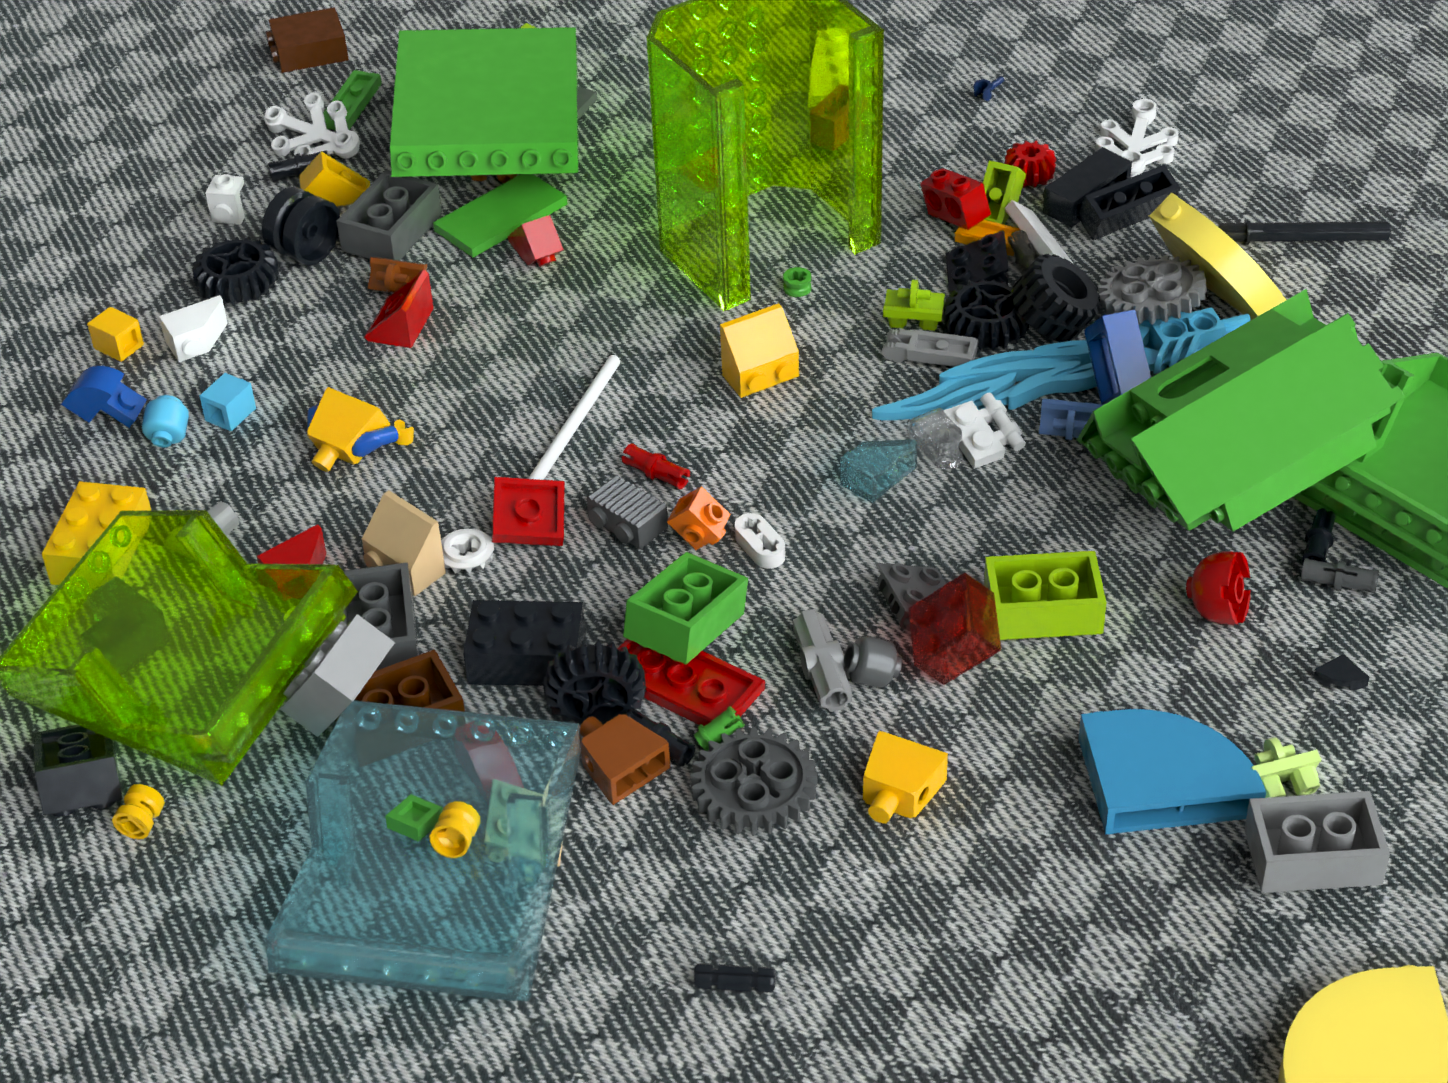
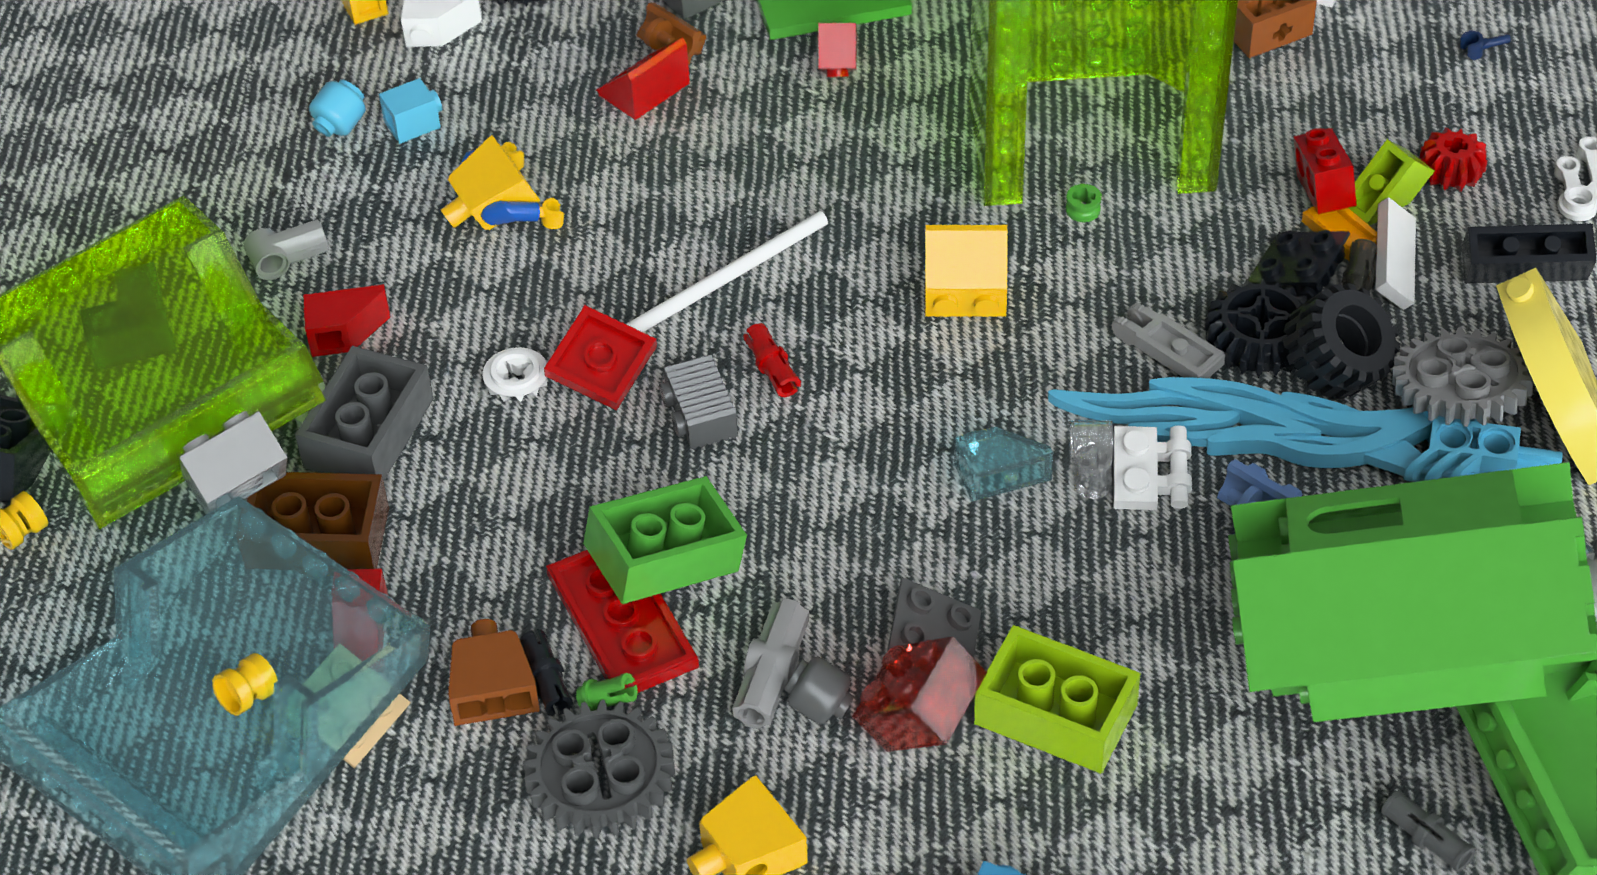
camera: 30 degrees right, 5 degrees up
(84, 520) = (208, 180): yellow brick -> none
(101, 389) = (298, 53): blue brick -> none
(404, 535) = (448, 344): tan slope -> none
(413, 817) = (220, 649): bright green plate -> none
(518, 638) = (490, 505): black brick -> none
(594, 682) = (511, 583): black gear -> none
(699, 518) = (761, 442): orange brick -> none
(753, 543) = (820, 493): white beam -> none
(913, 304) = (1181, 283): lime hips -> none
(1097, 171) = (1508, 203): black brick -> none
(1117, 354) = (1347, 443): window -> none
(1219, 588) = (1267, 784): red cylinder -> none
(1320, 536) = (1440, 772): black axle -> none

